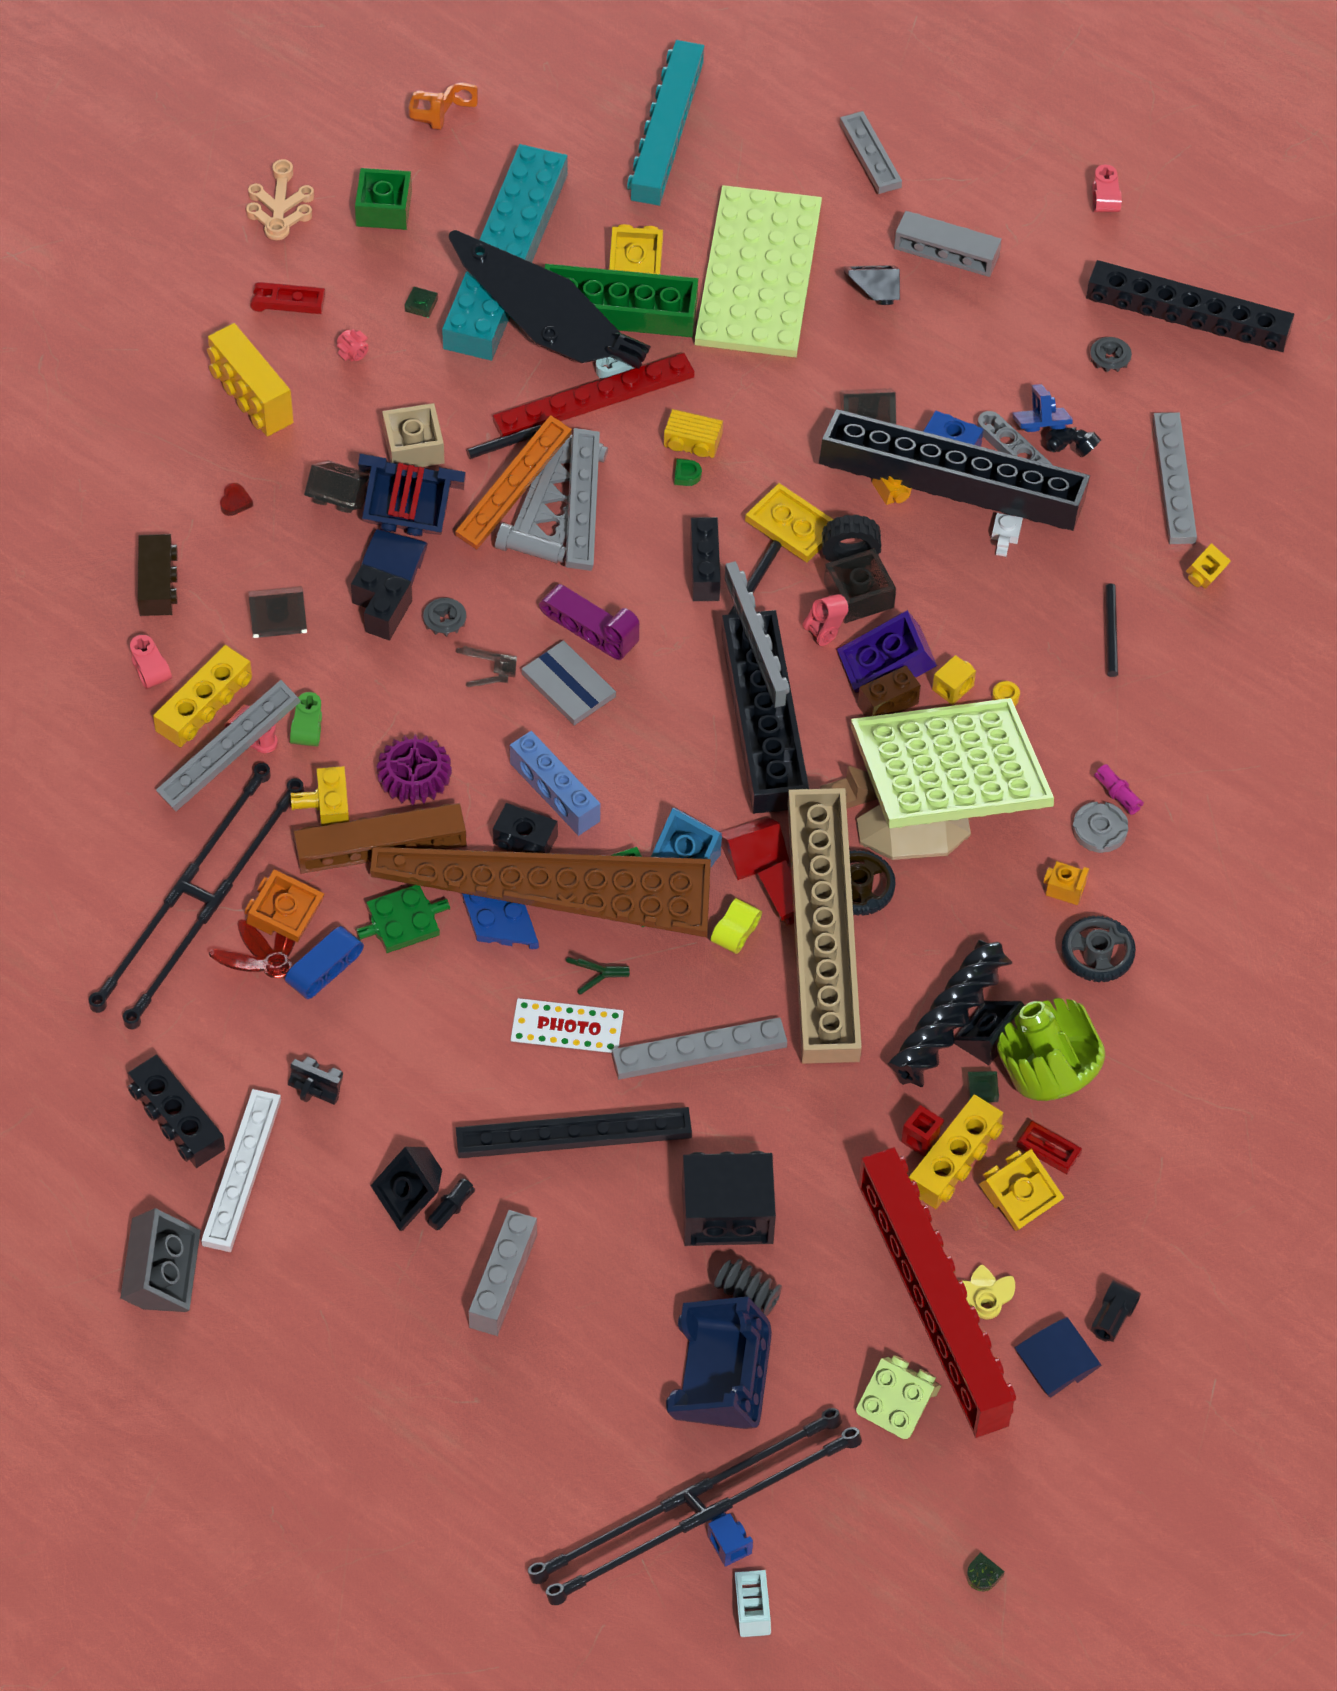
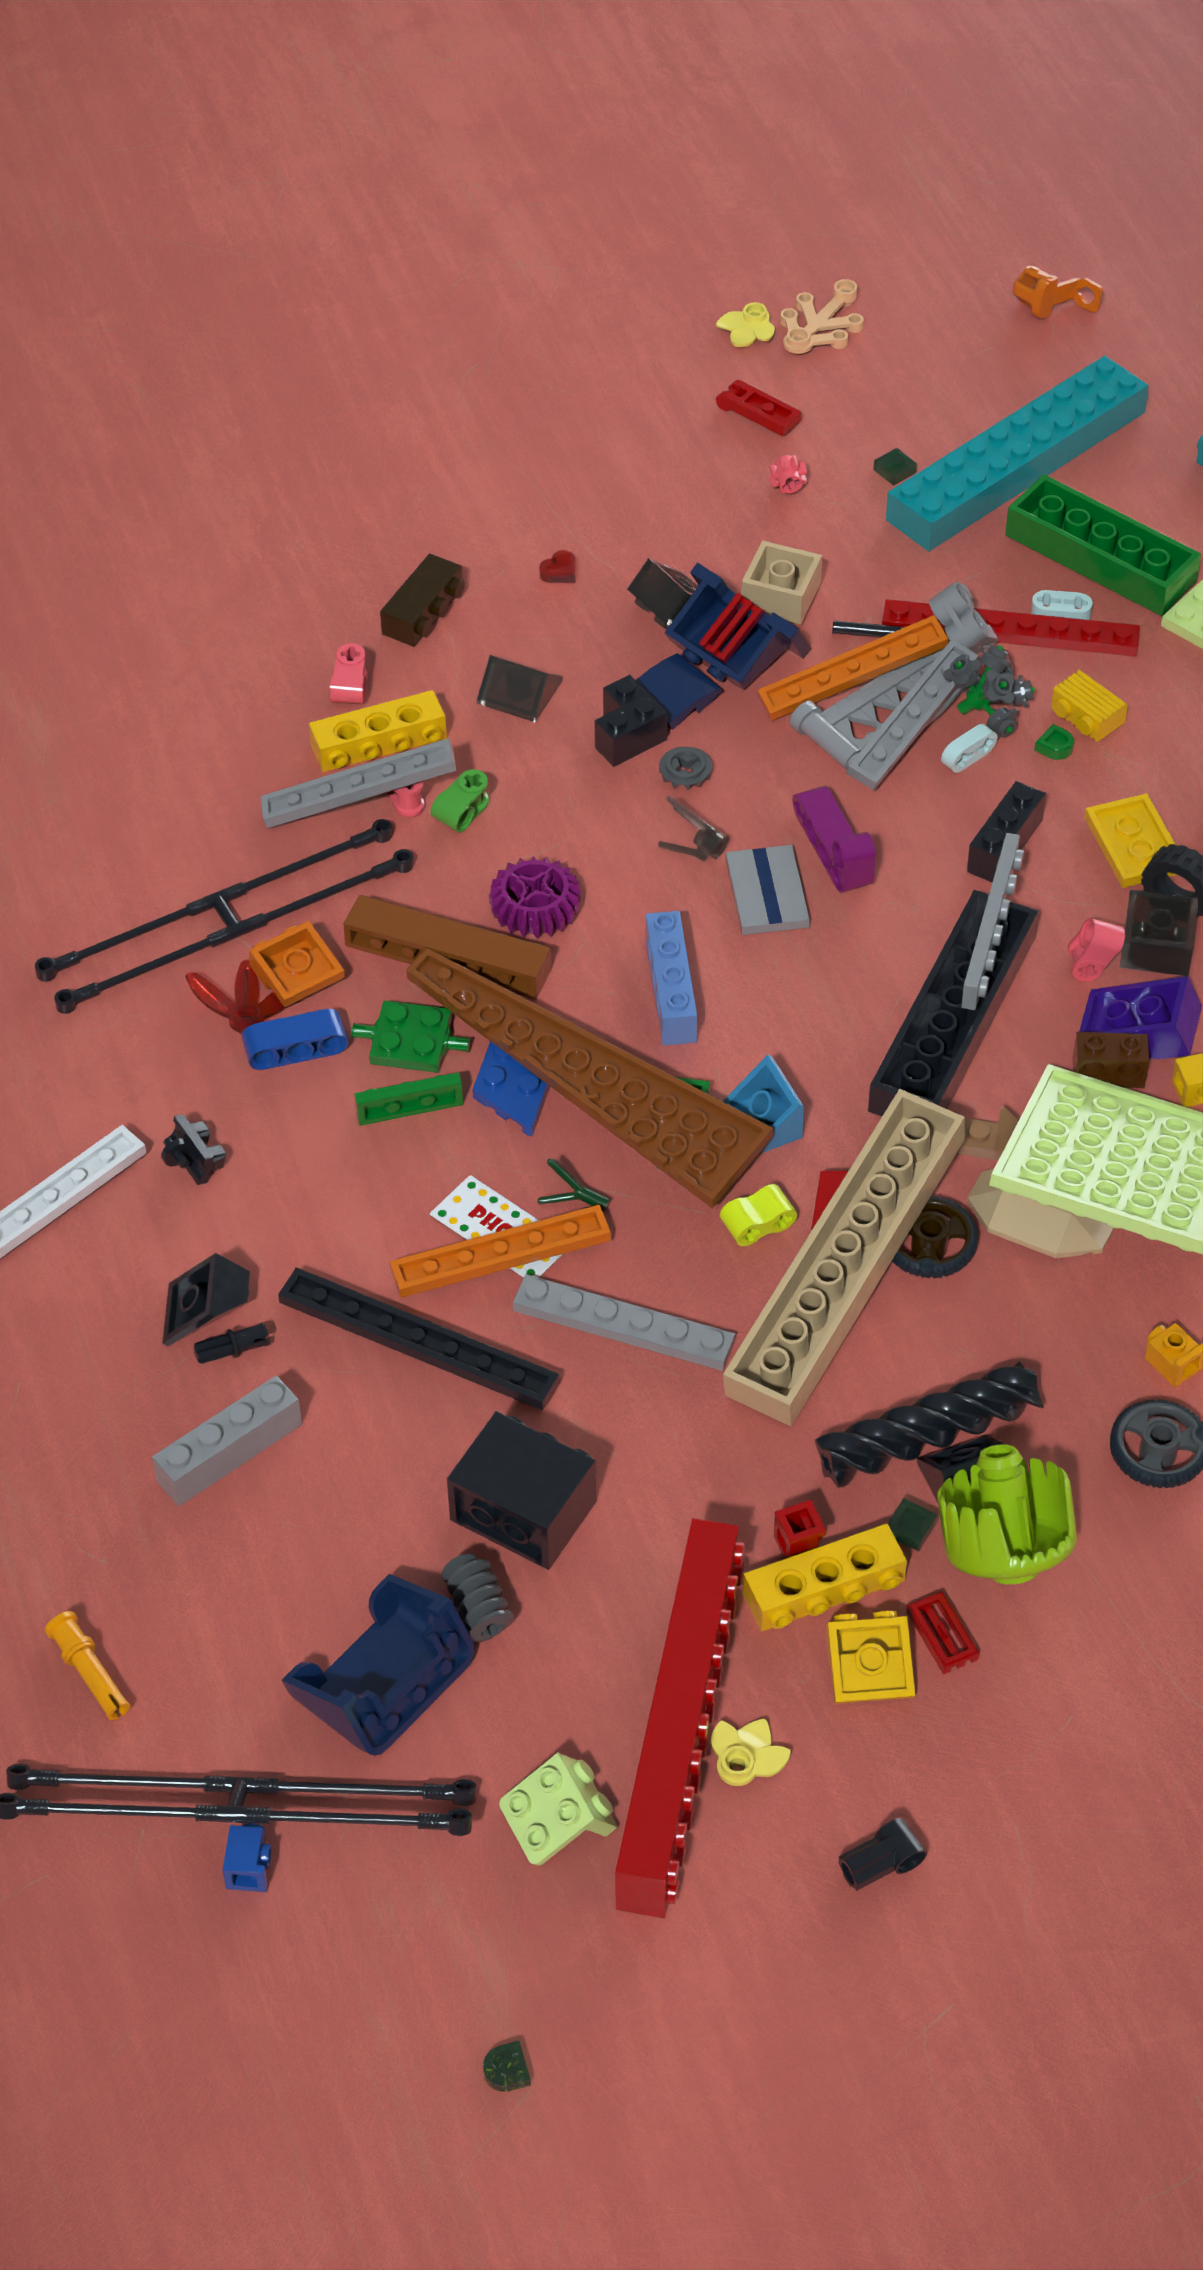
camera: 35 degrees right, 5 degrees down
(155, 1076) = (30, 1109): black brick -> none
(228, 231) = (747, 325): none -> light yellow plate
(250, 380) = (653, 460): yellow brick -> none
(328, 798) = (426, 883): yellow brick -> none
(383, 198) = (924, 353): green brick -> none
(438, 965) = (408, 1099): none -> green plate
(513, 1469) = (79, 1652): none -> light orange pin
(515, 821) = (602, 1009): black brick -> none
(546, 305) = (1014, 513): black wing -> none
(567, 408) = (961, 622): none -> light grey piece
(583, 1042) = (500, 1251): none -> orange plate
(633, 452) = (994, 686): none -> dark grey plant
(633, 505) = (969, 748): none -> light aqua beam
(636, 249) = (1161, 504): yellow plate -> none
(754, 847) = (833, 1142): red slope -> none
(758, 1621) = (210, 1969): light aqua slope -> none
(761, 569) = (1057, 876): black bar -> none
(1058, 1356) = (776, 1870): dark blue slope -> none

